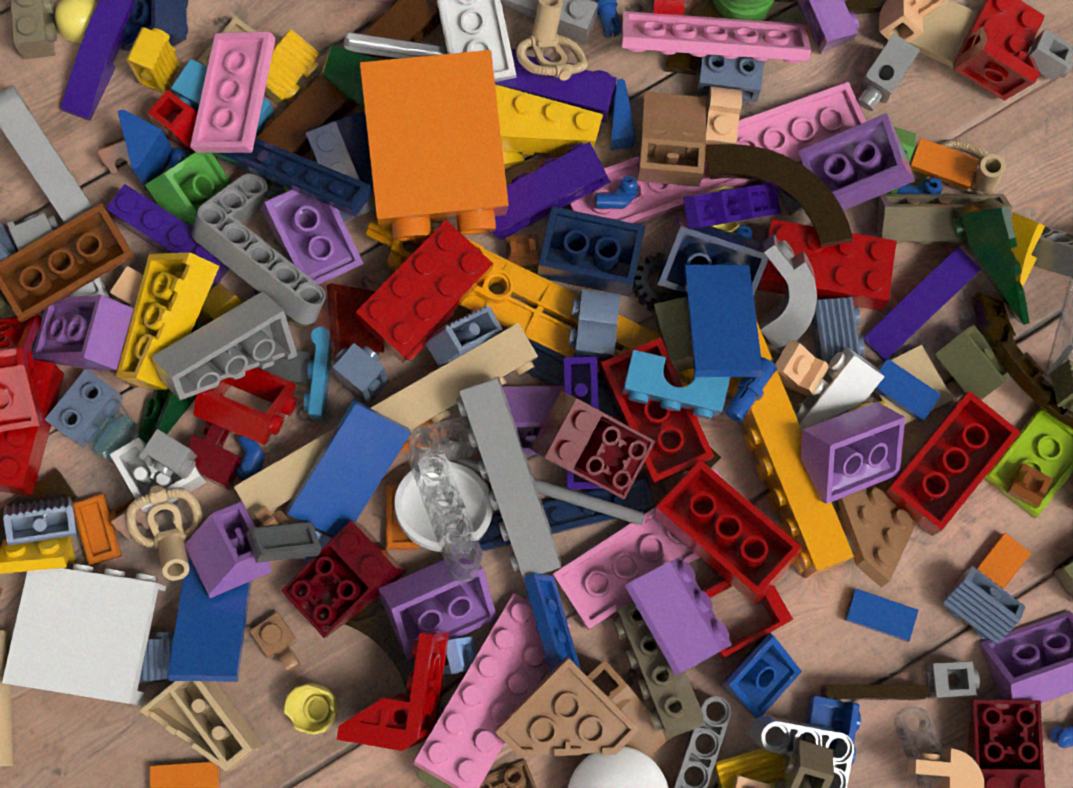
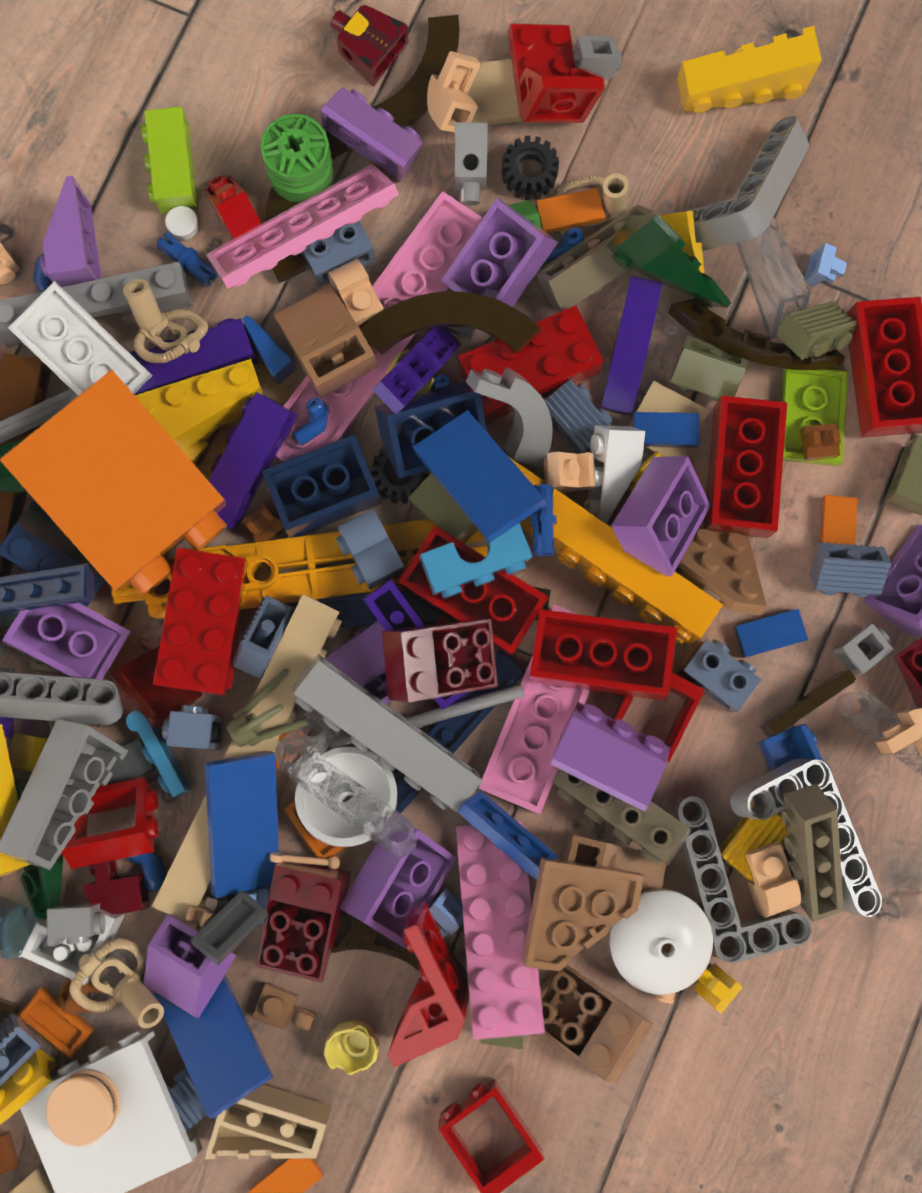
camera: 35 degrees left, 5 degrees up
(77, 602) = (83, 1107): none -> light nougat head
(396, 553) = (333, 862): none -> light nougat hinge
(403, 395) = (246, 727): none -> olive plant
(761, 676) = (707, 754): blue slope -> none
(815, 618) = (720, 675): none -> sand blue brick
(939, 93) = (533, 151): none -> black tyre

